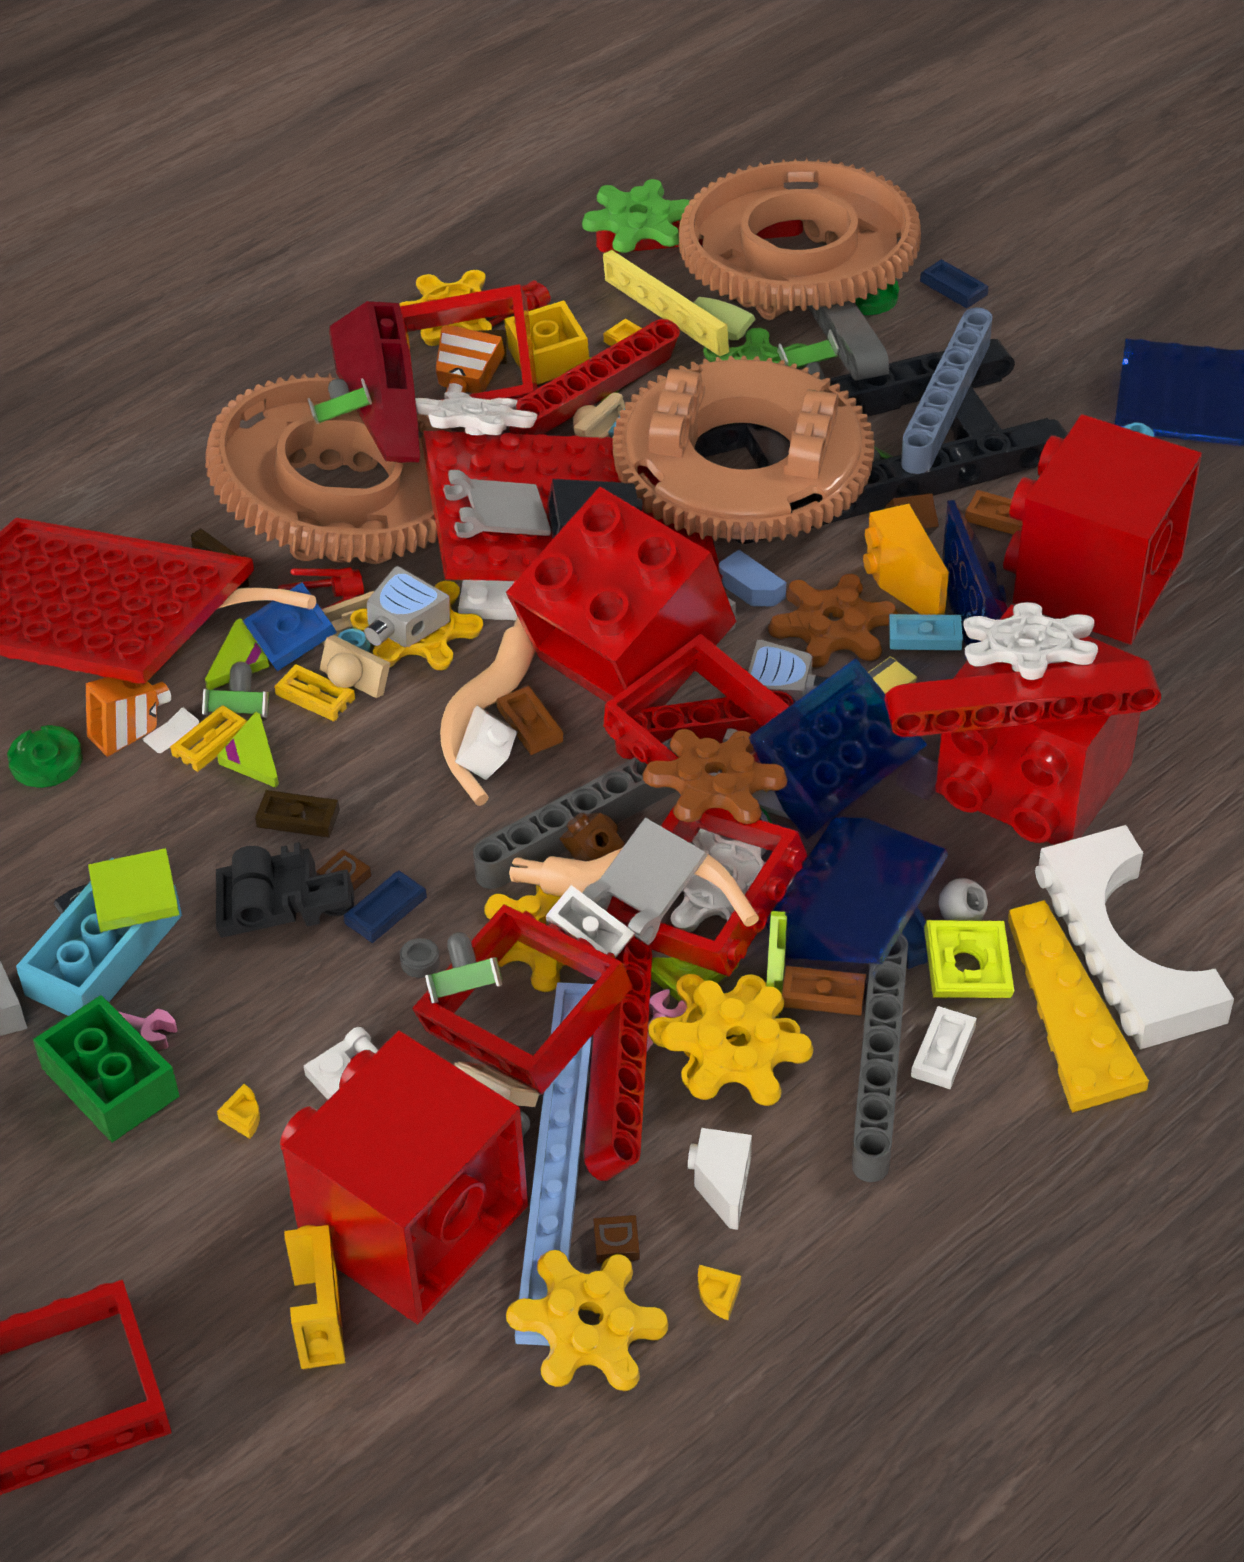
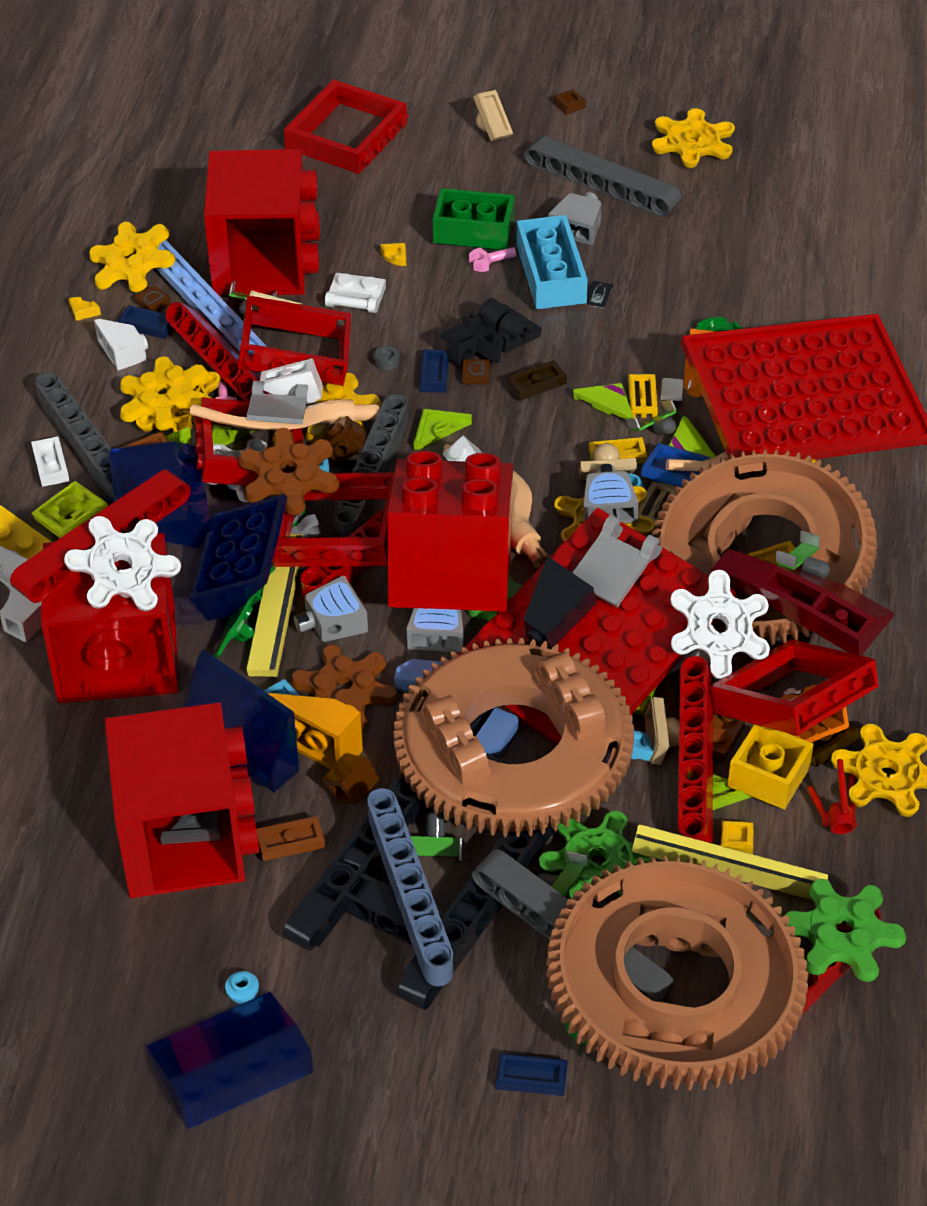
camera: 140 degrees right, 0 degrees up
(133, 890) = (551, 266): lime tile -> none
(456, 834) = (437, 425): none -> lime tile
(466, 971) = (340, 328): piece -> none
(654, 1207) = (146, 321): none -> dark blue tile

